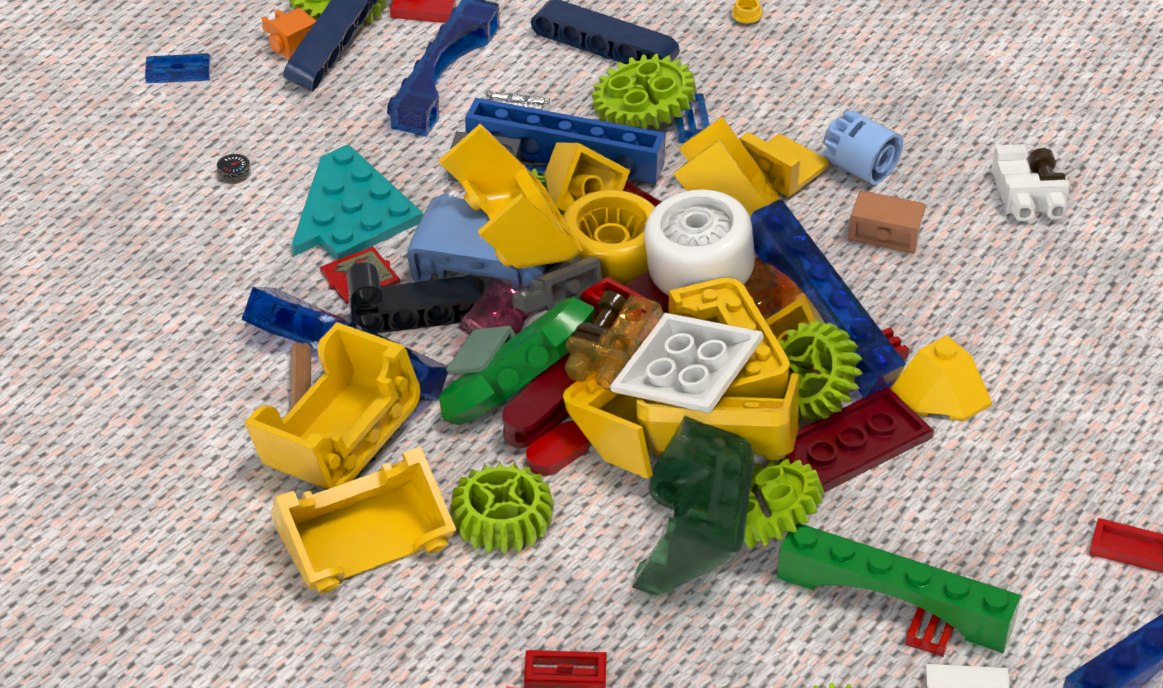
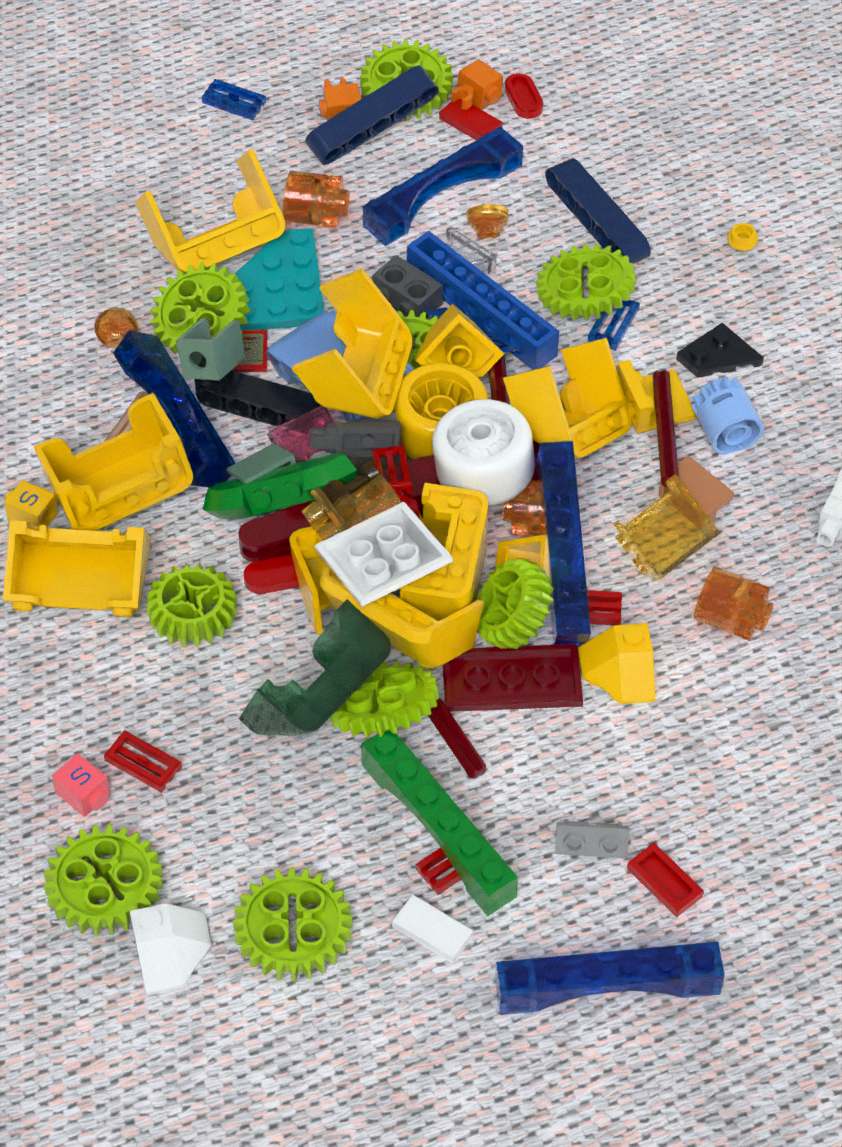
camera: 30 degrees right, 10 degrees up
(224, 298) = (113, 326): none -> clear orange piece
(233, 168) = (211, 212): tile -> none
(259, 488) = (31, 504): none -> yellow brick
(283, 146) = (256, 224): none -> yellow windscreen
(300, 249) = (207, 288): none -> lime gear
(336, 116) = (315, 199): none -> clear orange gear
(367, 261) = (221, 351): none -> sand green piece
(511, 76) = (487, 220): none -> clear orange piece
(804, 106) = (718, 352): none -> black wing
(825, 178) = (665, 425): none -> dark red axle
(857, 517) = (457, 740): none -> dark red axle
(893, 255) = (667, 531): none -> clear yellow panel
(1000, 291) = (733, 604): none -> clear orange gear
(1042, 540) = (592, 840): none -> light grey hinge

